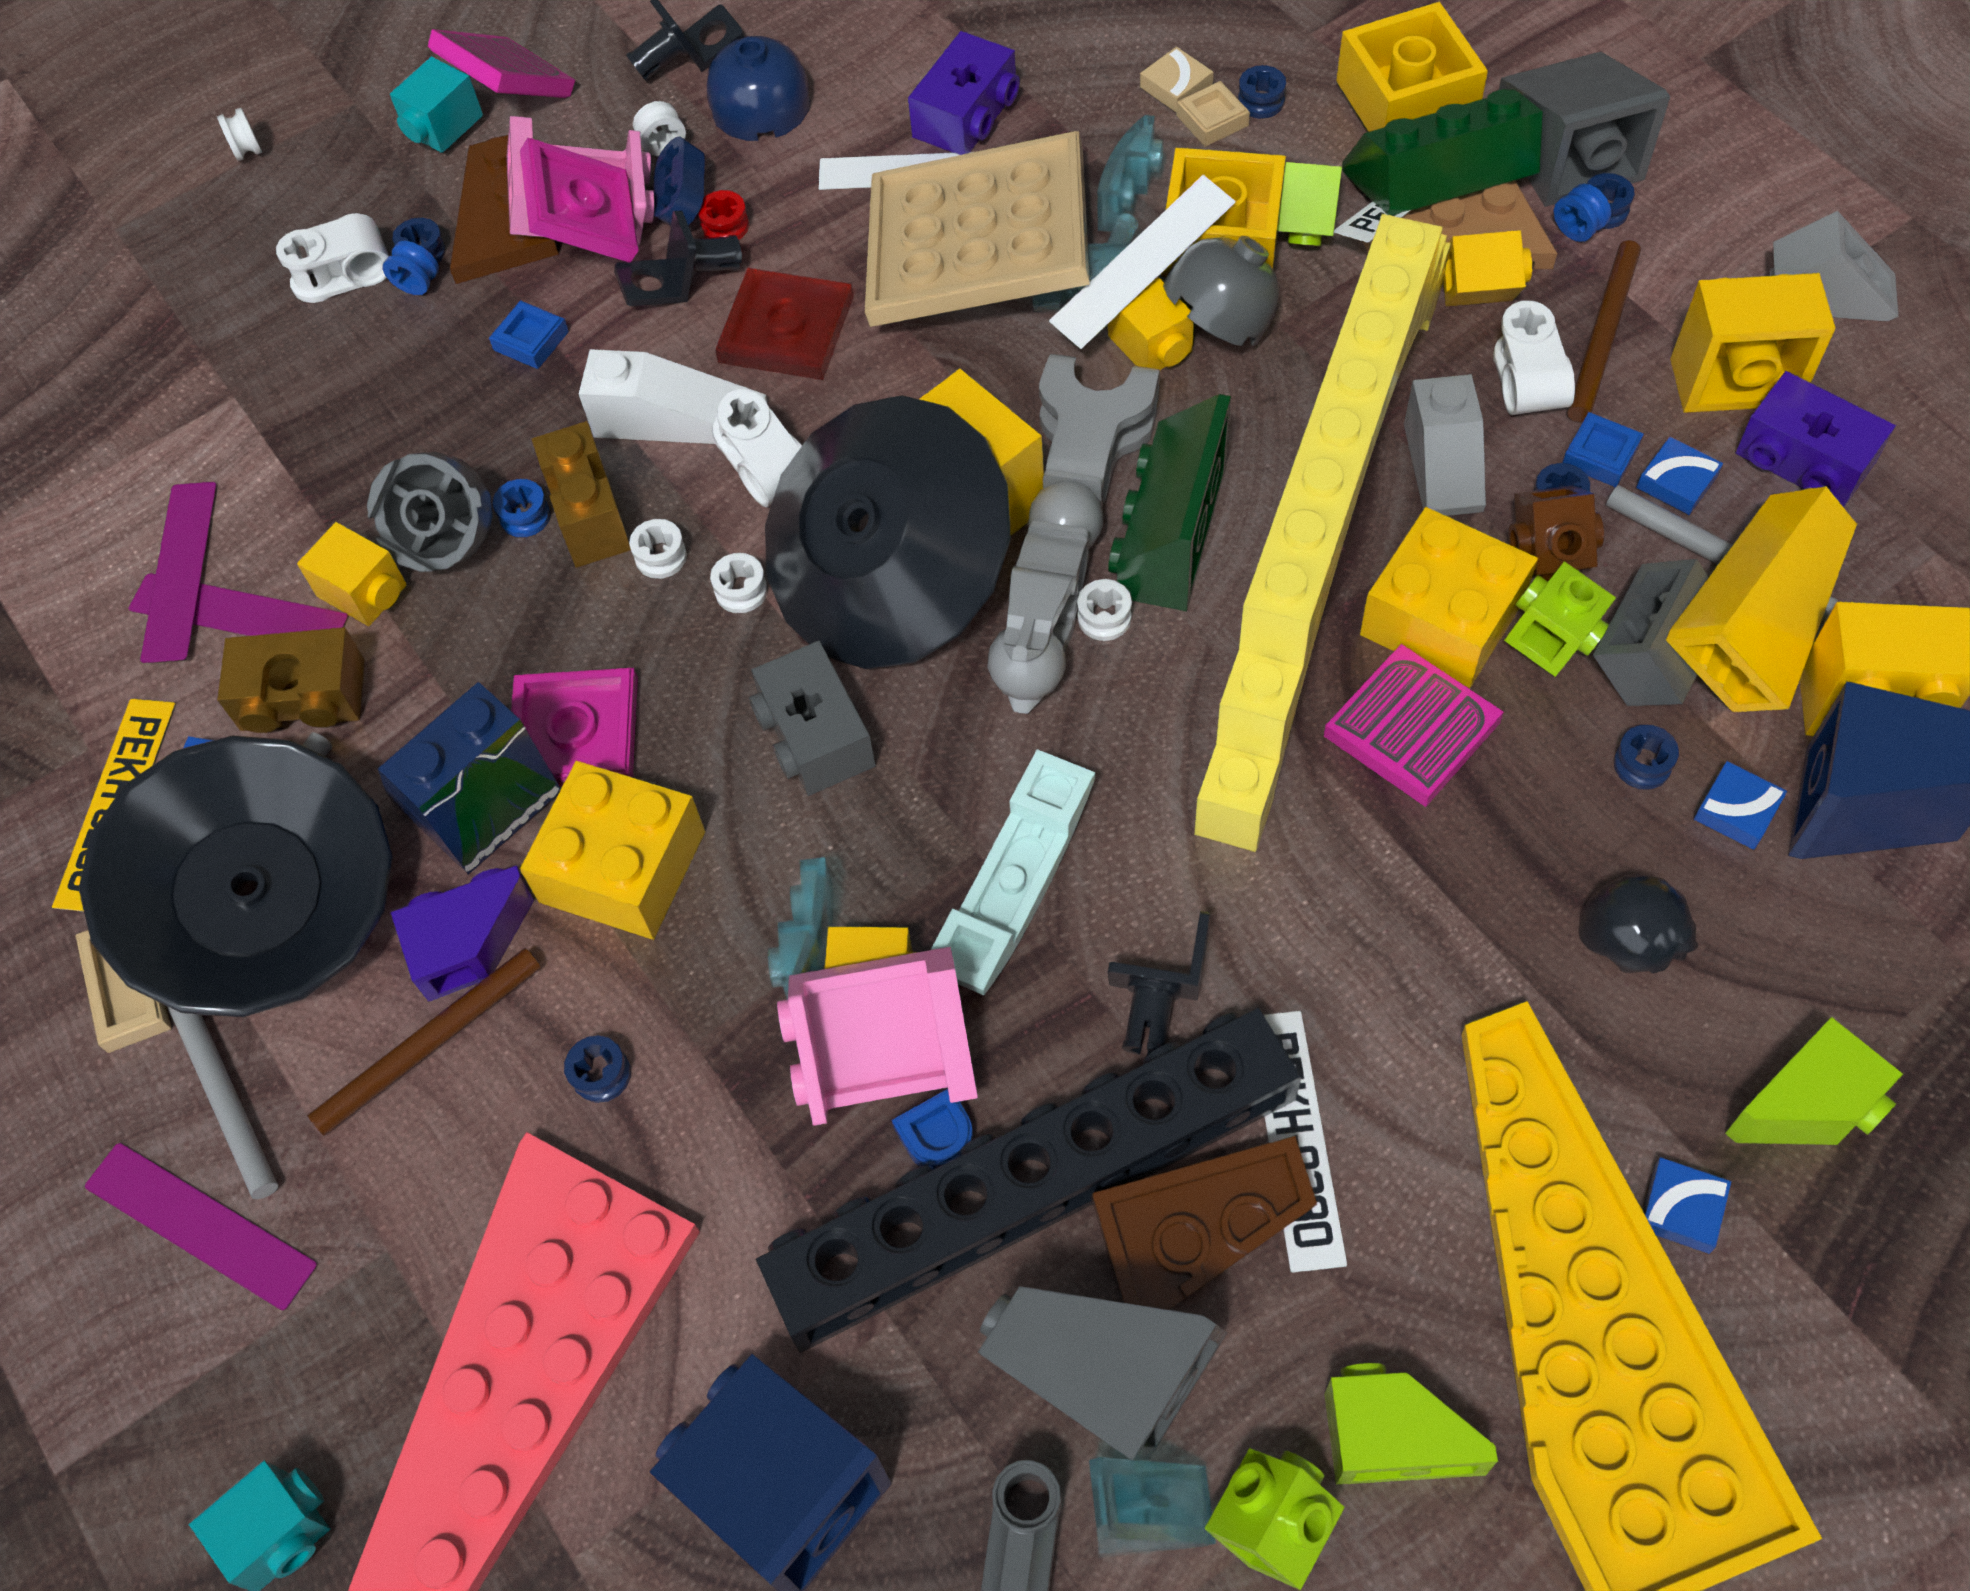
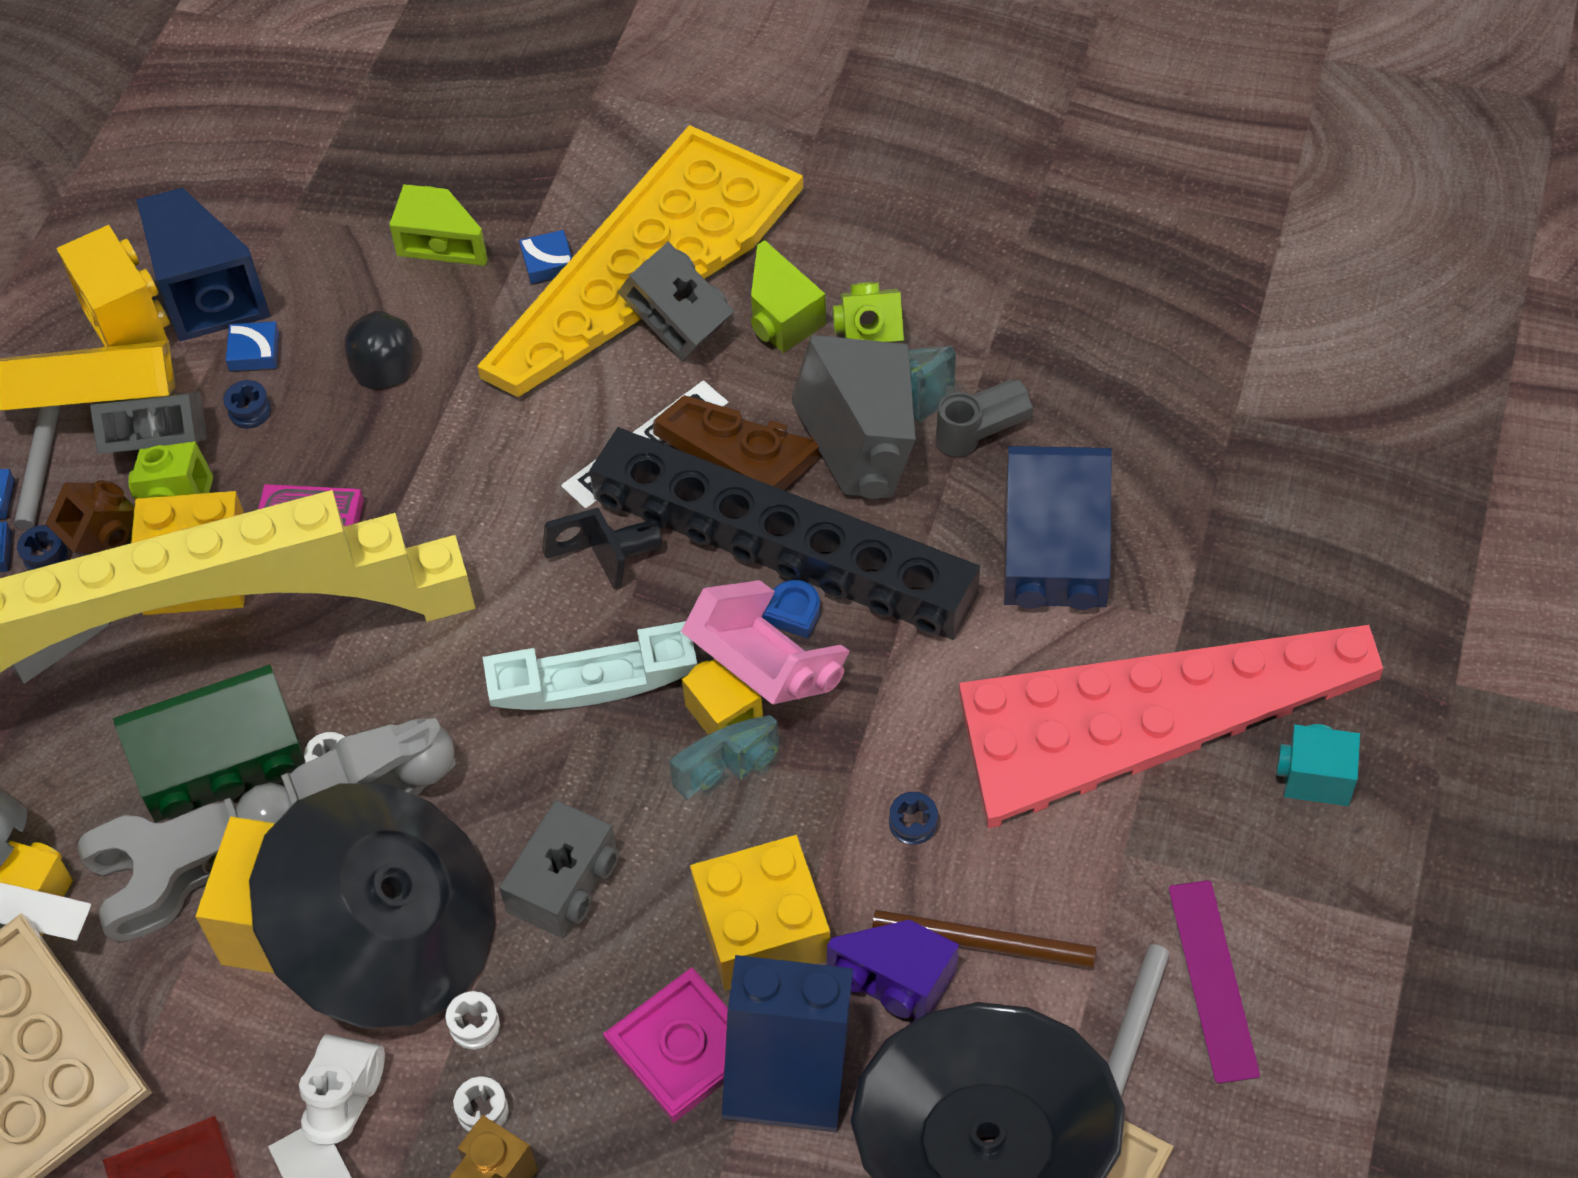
camera: 130 degrees left, 5 degrees down
(1426, 1271) = (652, 296): none -> dark grey brick

